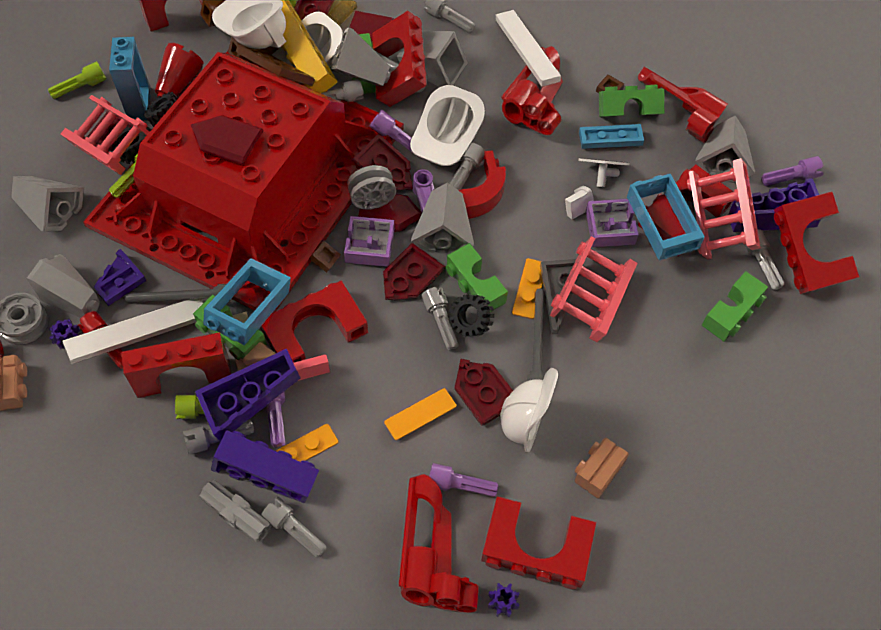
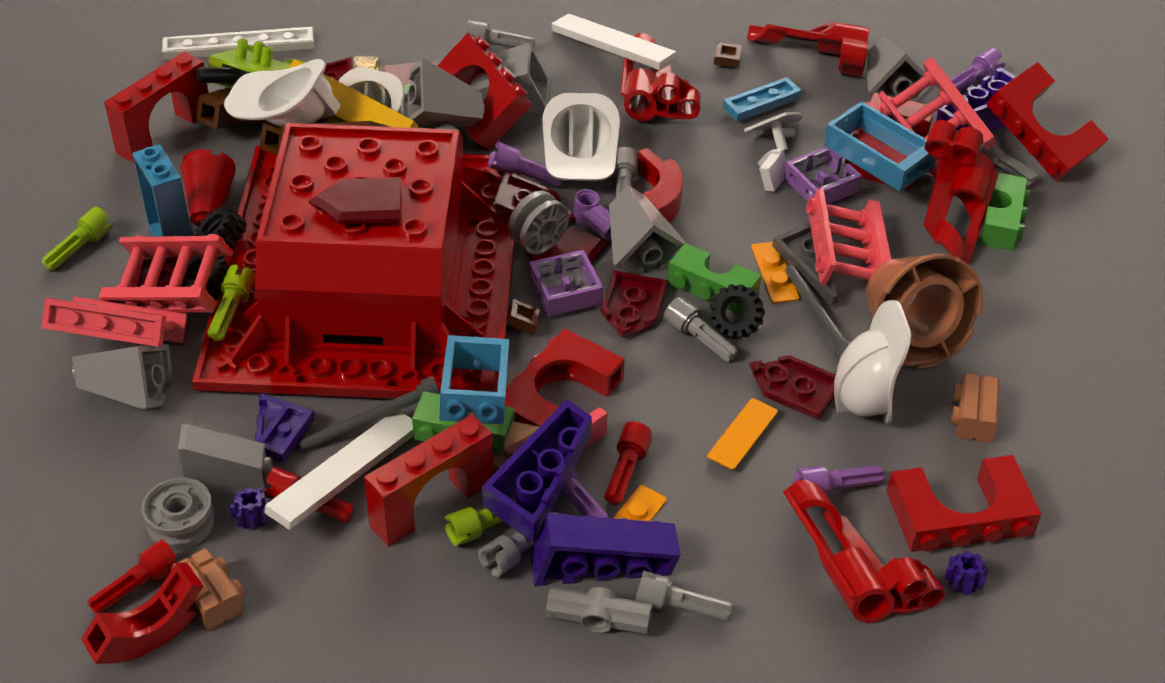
camera: 25 degrees left, 15 degrees down
(56, 158) = (114, 321): none -> coral fence
(335, 393) = (632, 447): none -> red piece
(602, 372) = (942, 310): none -> nougat cone
(649, 100) = (780, 51): bright green arch -> none
(712, 264) = (961, 173): none -> red panel

